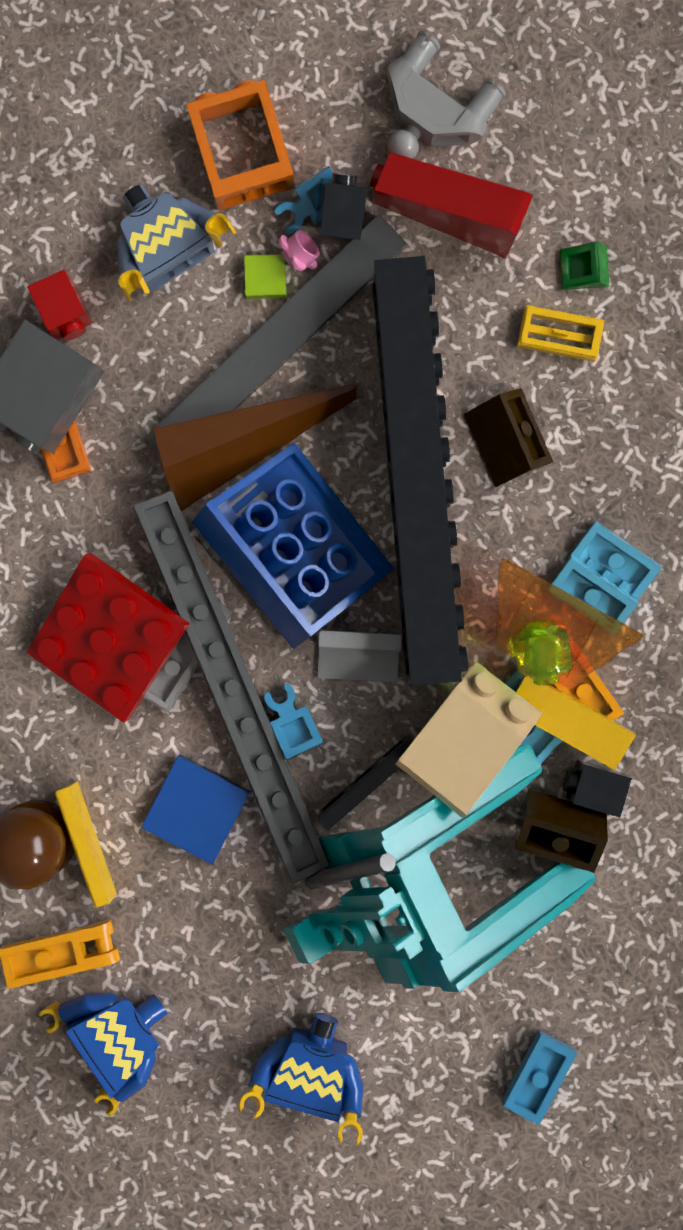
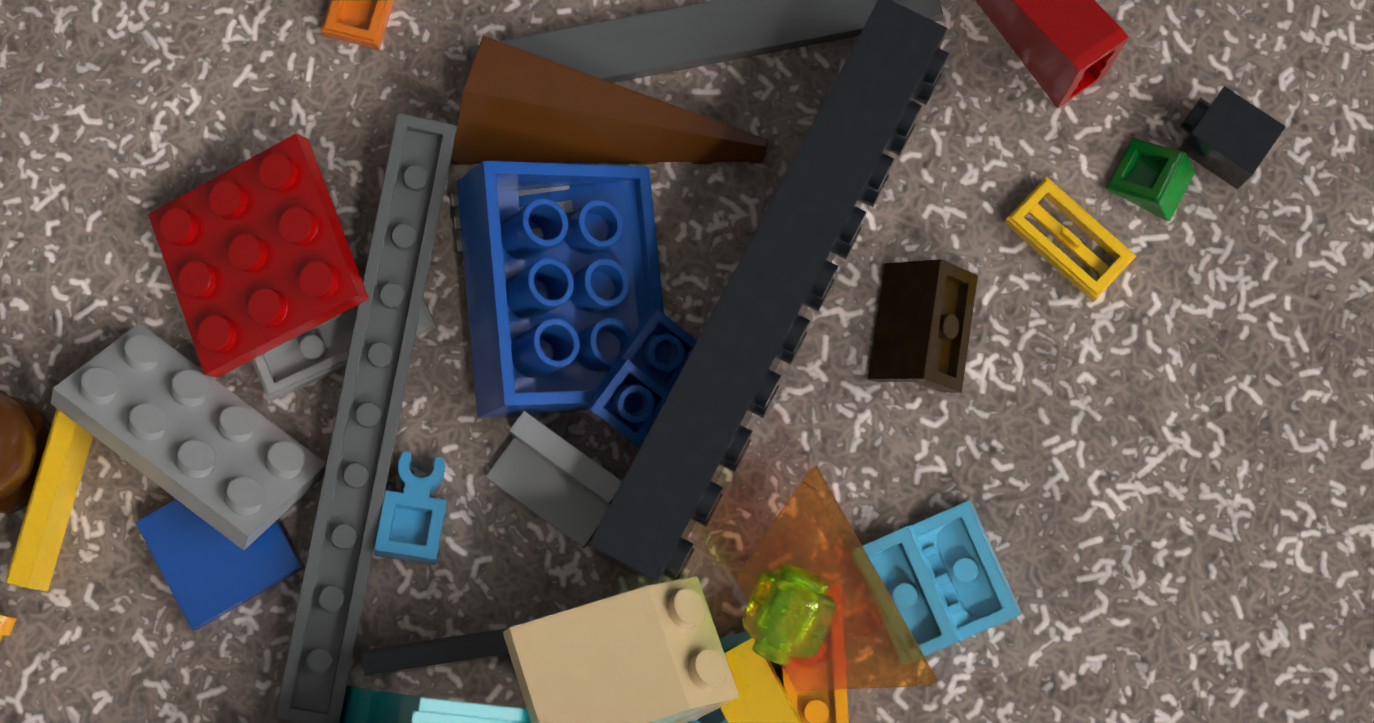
camera: 40 degrees right, 10 degrees down
(139, 762) = (189, 435): none -> light grey plate
(371, 567) = (642, 376): none -> blue slope
(617, 215) = (1229, 136): none -> black brick

